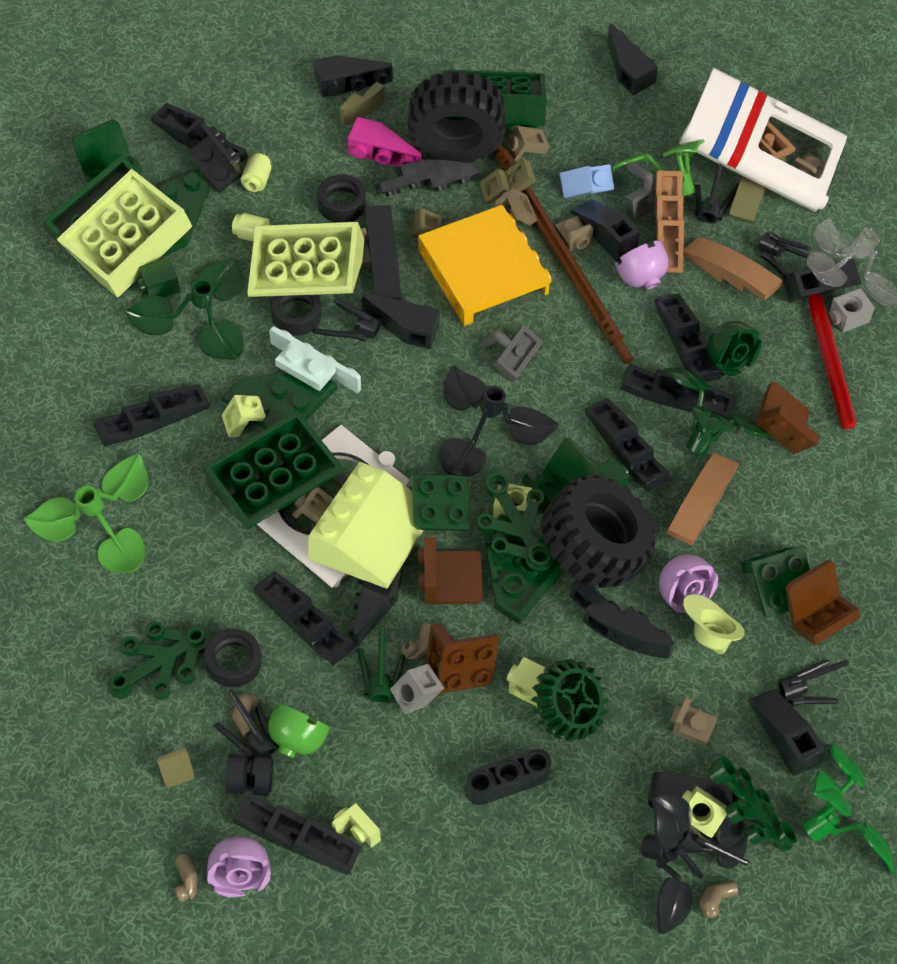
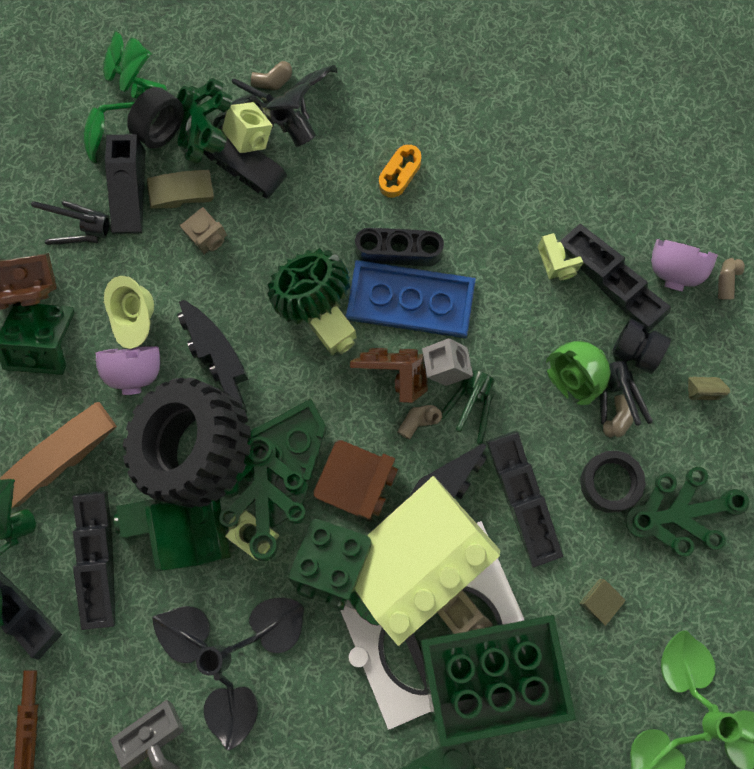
camera: 150 degrees left, 20 degrees up
(208, 569) = (602, 601): none -> olive slope
(473, 740) = (410, 299): none -> blue tile
(537, 853) = (394, 167): none -> light orange beam
(741, 746) = (180, 187): none -> olive slope
(795, 793) = (145, 110): none -> black tyre

